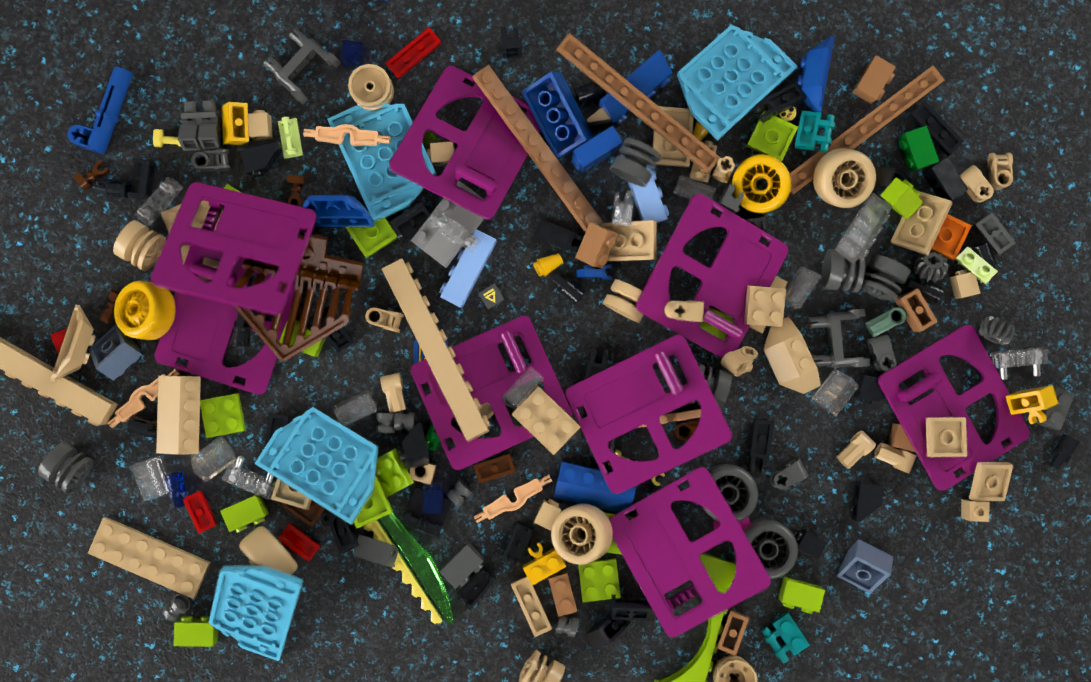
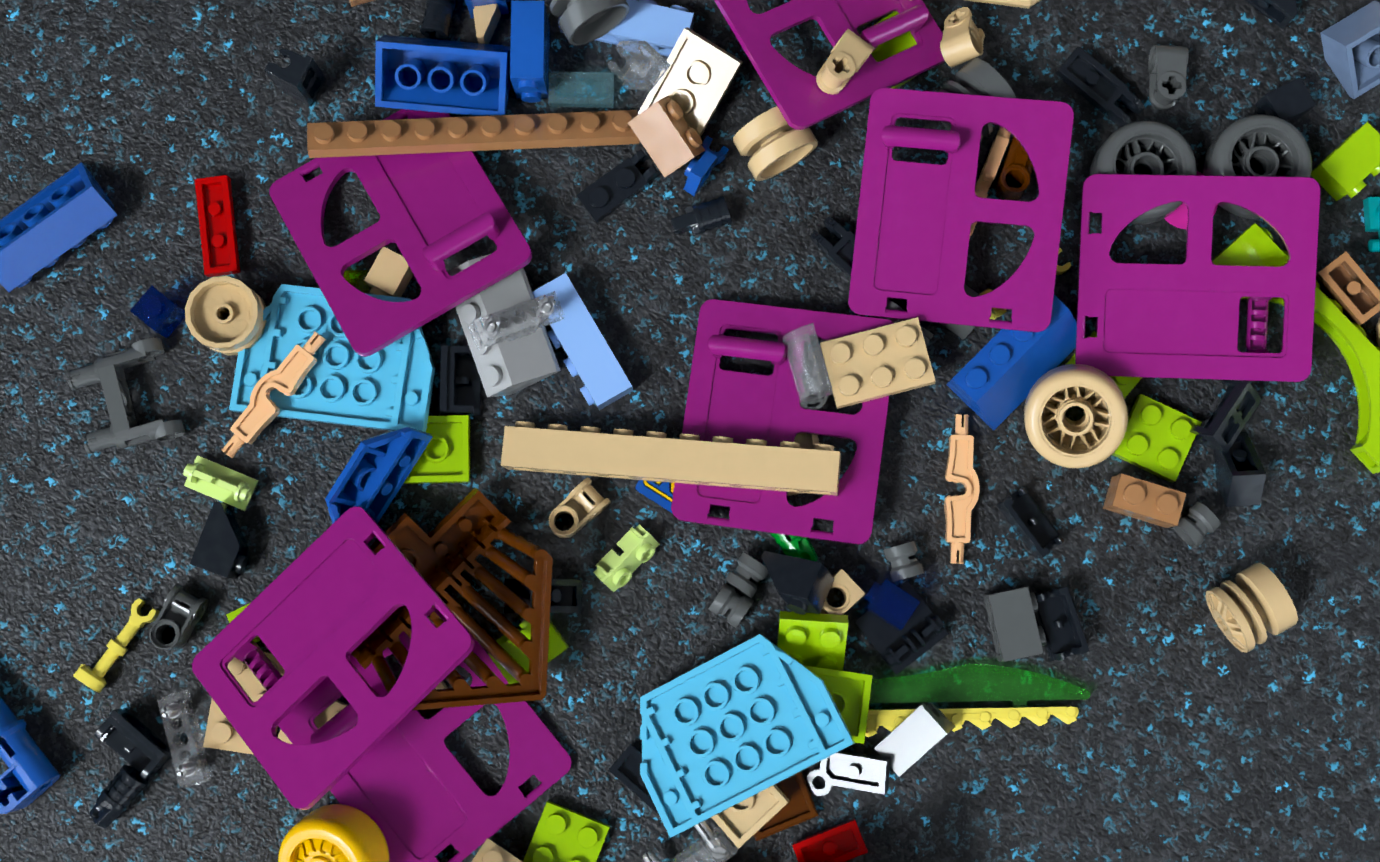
camera: 55 degrees left, 5 degrees down
(84, 181) = (78, 818): reddish brown piece -> none
(139, 245) = (231, 806): tan wheel -> none
(200, 127) = (116, 604): dark grey hips -> none
(235, 123) = (145, 548): yellow brick -> none
(241, 332) = (458, 731): black hinge -> none
(260, 125) = (173, 514): tan brick -> none
(296, 180) = (290, 512): reddish brown piece -> none
(355, 408) = (681, 635): clear hinge -> none
(385, 360) = (617, 570): none -> yellowish green hinge
(392, 387) = (686, 562): tan piece -> none
(491, 296) = (643, 336): dark grey tile -> none
(494, 468) = (898, 487): reddish brown plate -> none
(531, 606) = (1135, 559): tan plate -> none
(543, 564) = (1085, 502): yellow brick -> none
(547, 264) = (648, 225): yellow cone -> none
(547, 513) = (1014, 450): tan brick -> none
(595, 187) = (581, 89): none -> clear light blue plate

